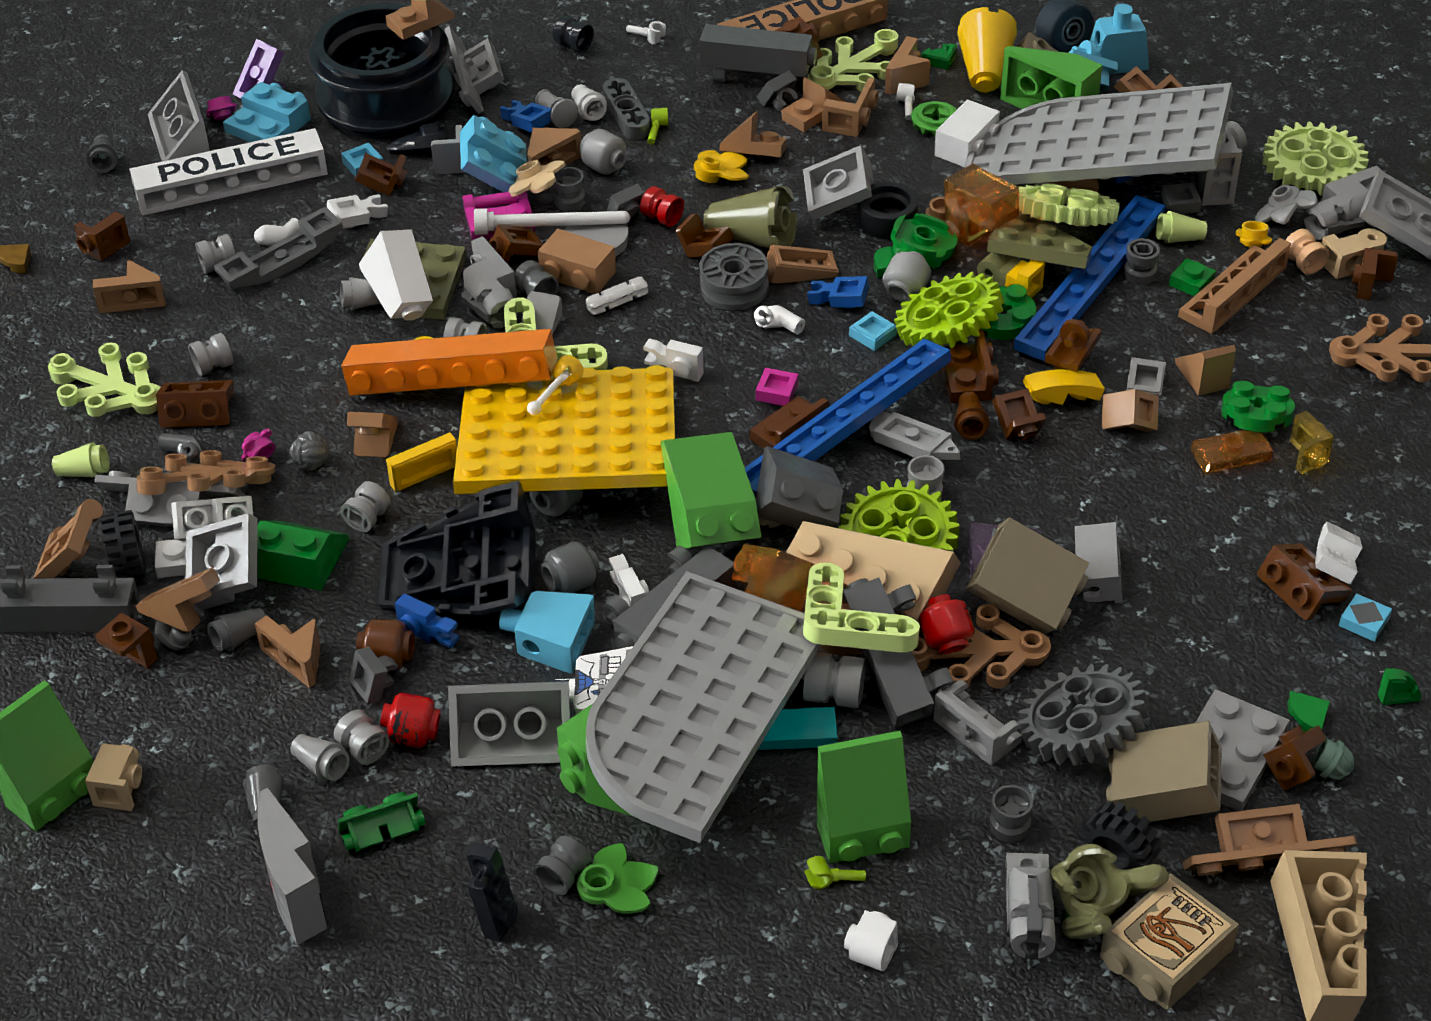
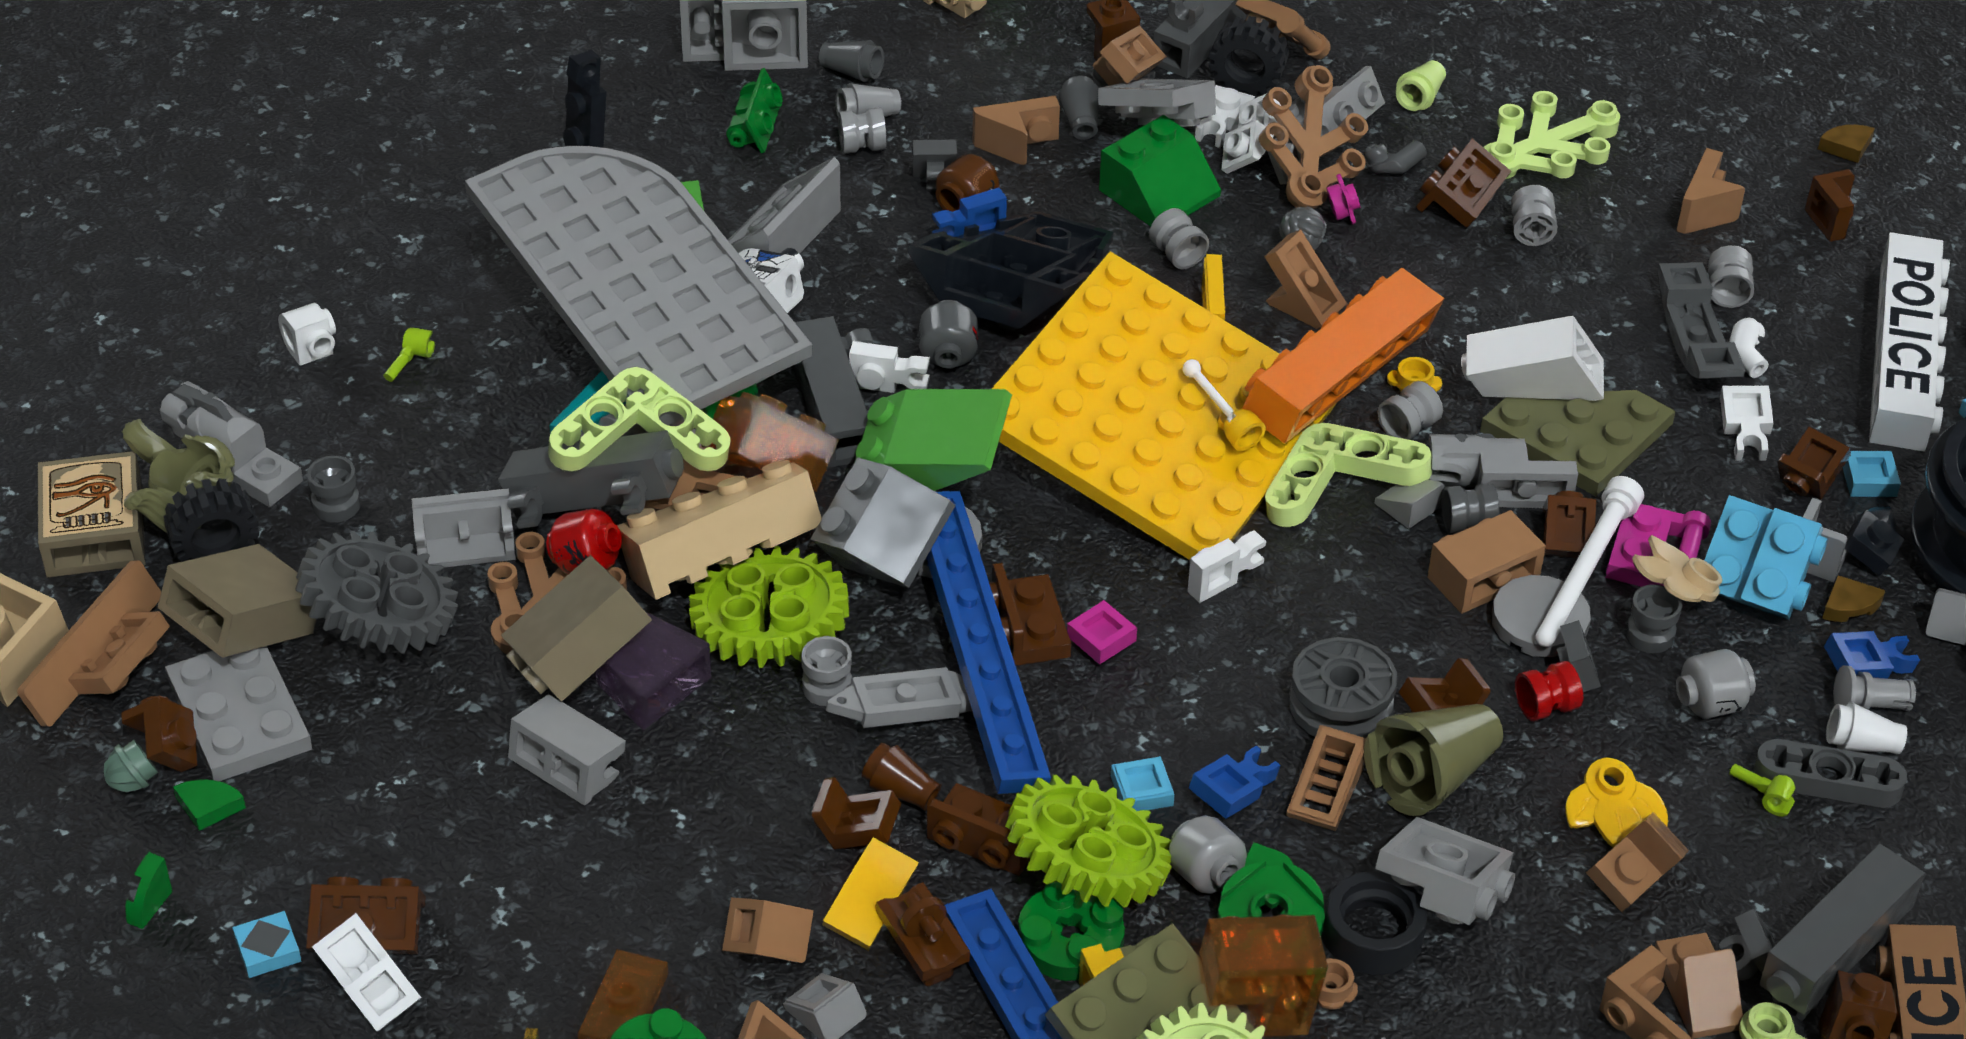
camera: 120 degrees right, 0 degrees up
(411, 720) = (857, 158): red head -> none
(551, 627) = (877, 295): medium azure torso -> none
(554, 145) = (1758, 631): medium nougat slope -> none
(616, 295) = (1398, 580): white axle -> none
(778, 317) = (1239, 703): white arm -> none
(863, 797) = (437, 369): bright green slope -> none

